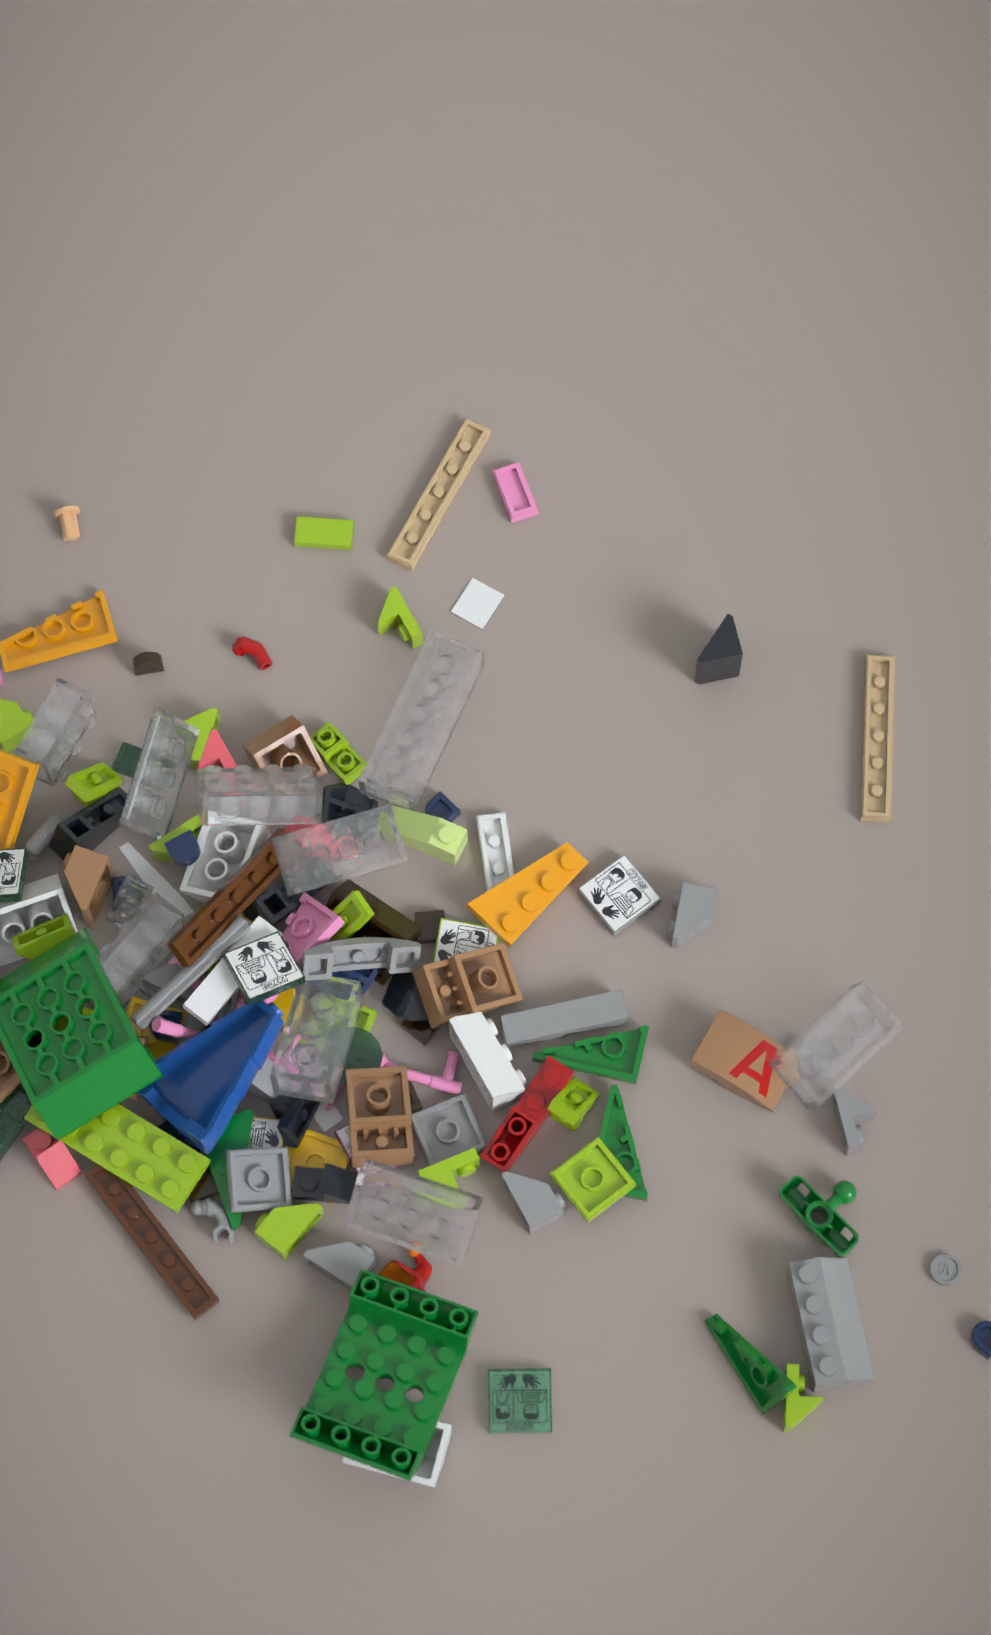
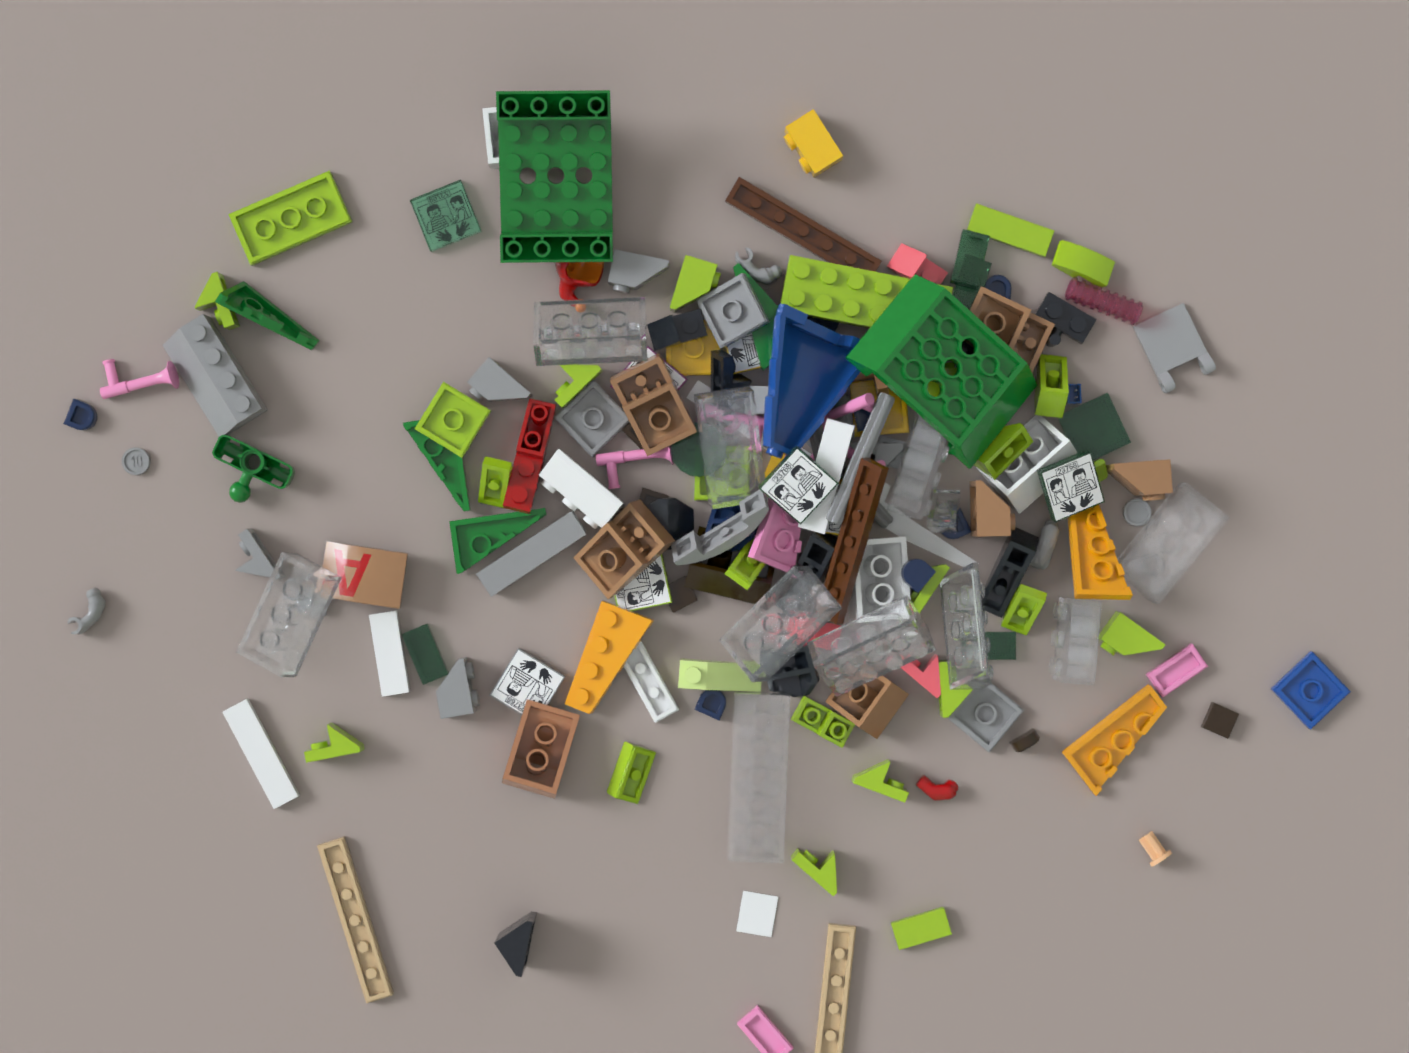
camera: 155 degrees right, 20 degrees up
(102, 1323) = (812, 143): none -> yellow brick
(175, 694) = (986, 715): none -> light grey tile
(309, 679) = (873, 779): none -> lime slope
(548, 775) = (631, 772): none -> lime slope
(628, 825) = (540, 749): none -> nougat slope
(687, 1462) = (290, 218): none -> lime tile
(712, 963) = (425, 654): none -> clear green tile
(748, 976) = (389, 653): none -> white tile
(830, 902) = (341, 744): none -> lime slope
(916, 928) = (261, 753): none -> white tile
(940, 1351) = (168, 376): none -> bright pink piece

